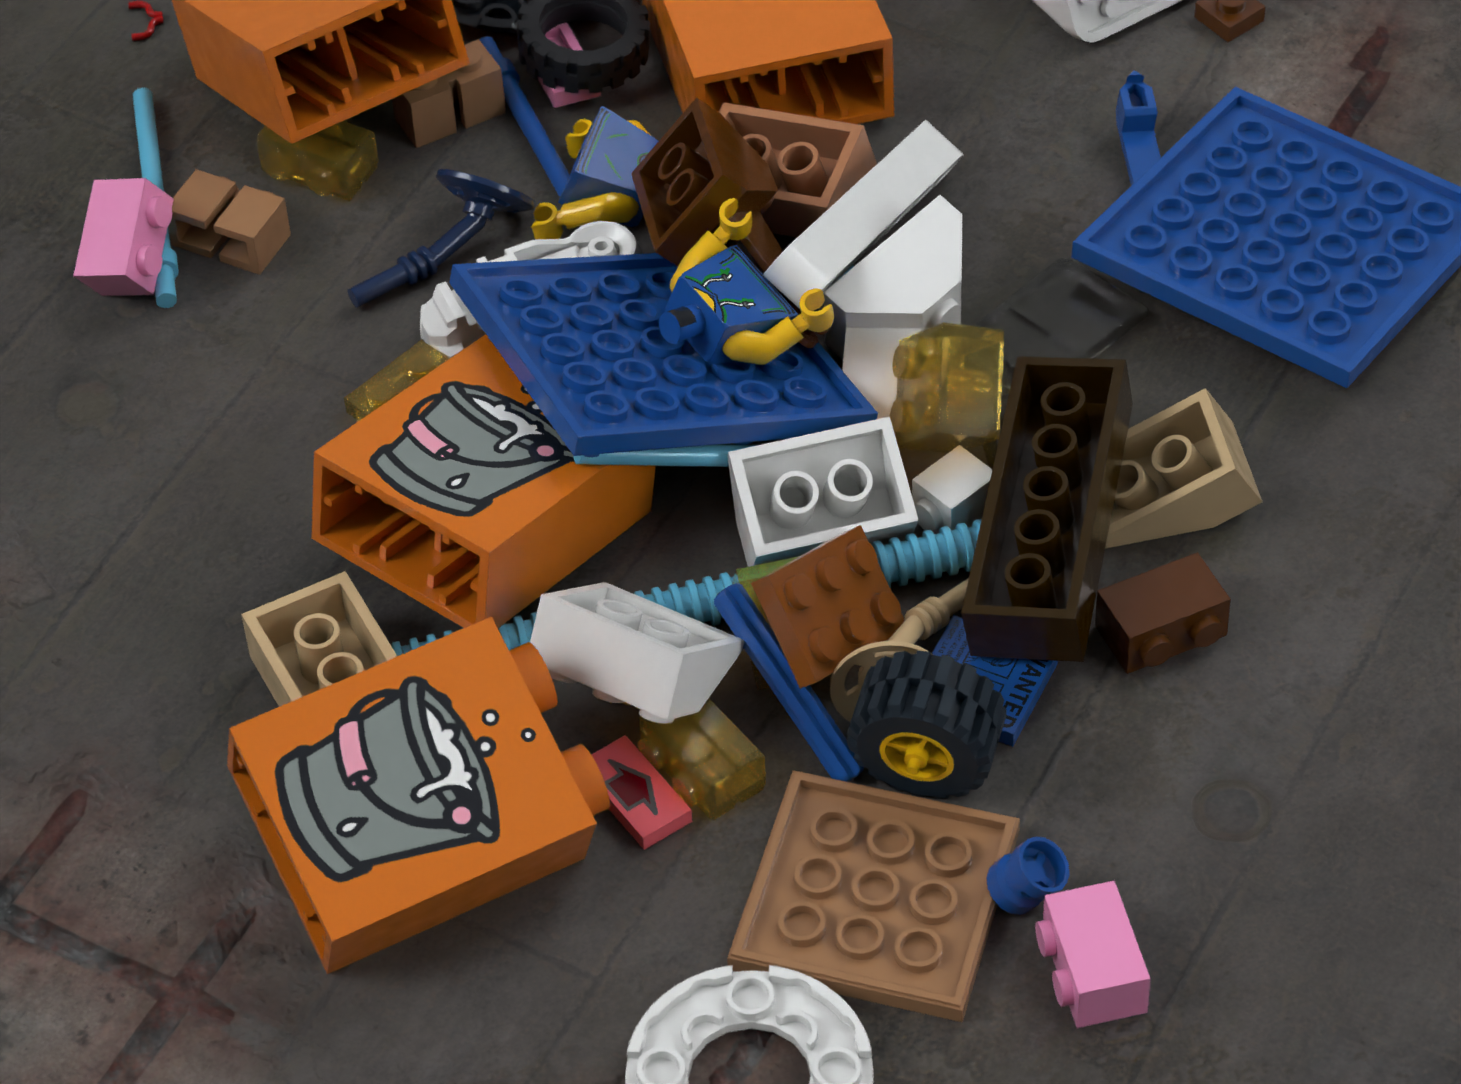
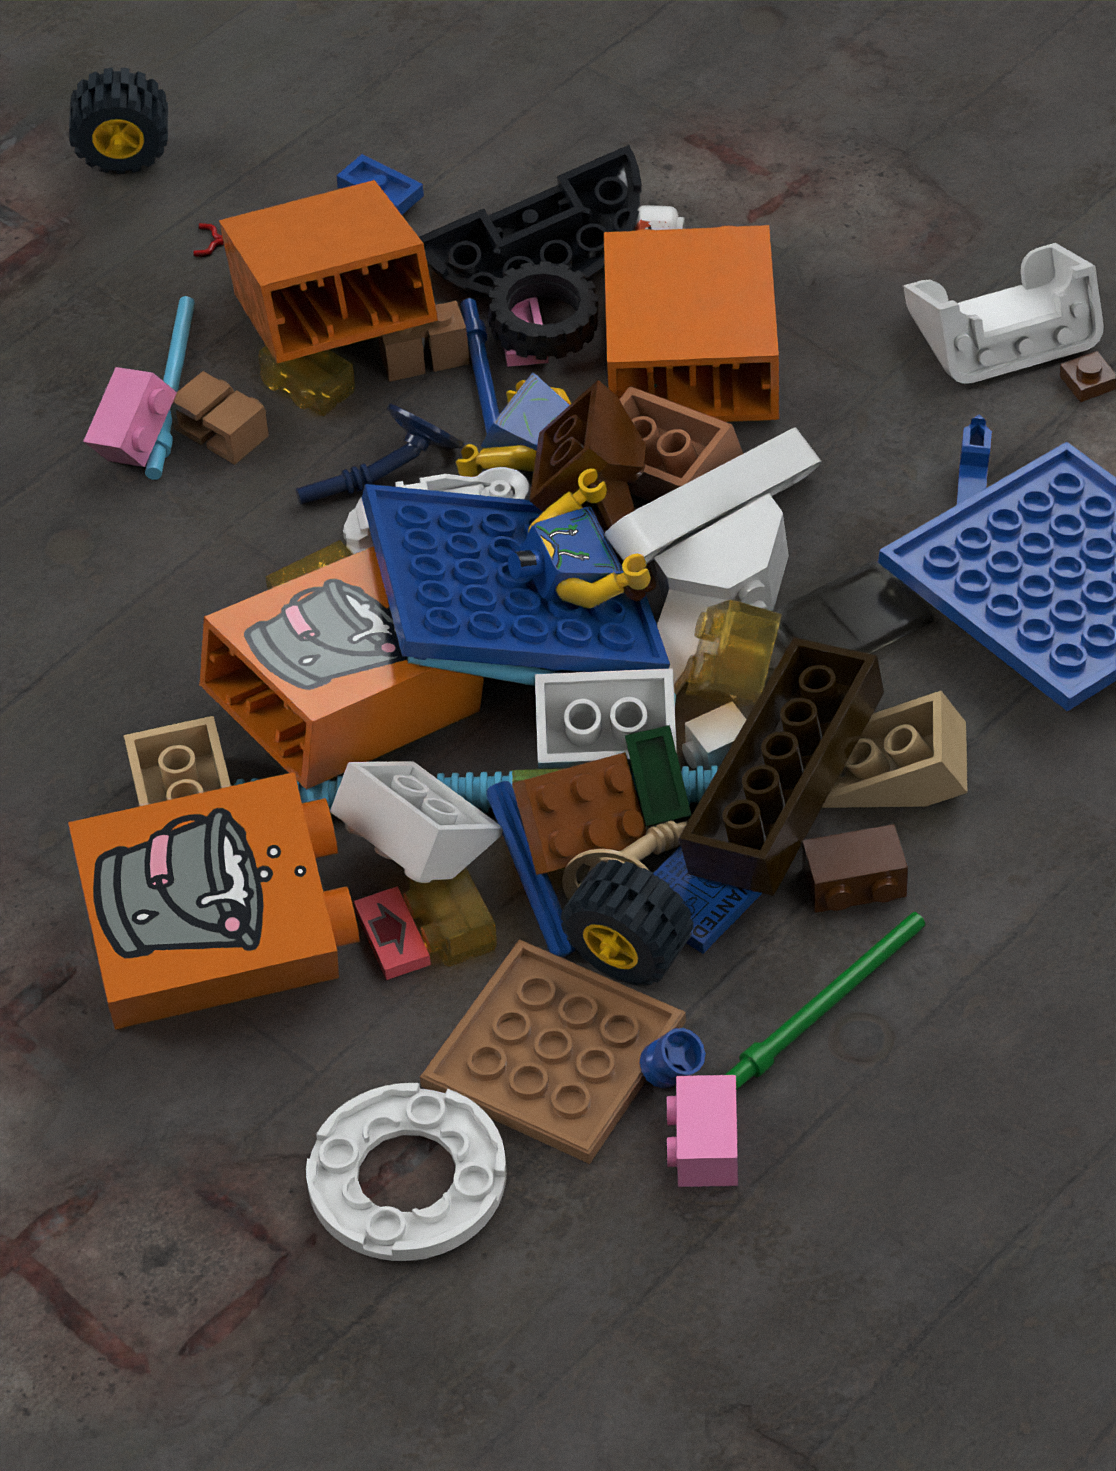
camera: 15 degrees right, 0 degrees up
(903, 545) = (657, 775): none -> dark green tile
(1126, 852) = (760, 1056): none -> green bar

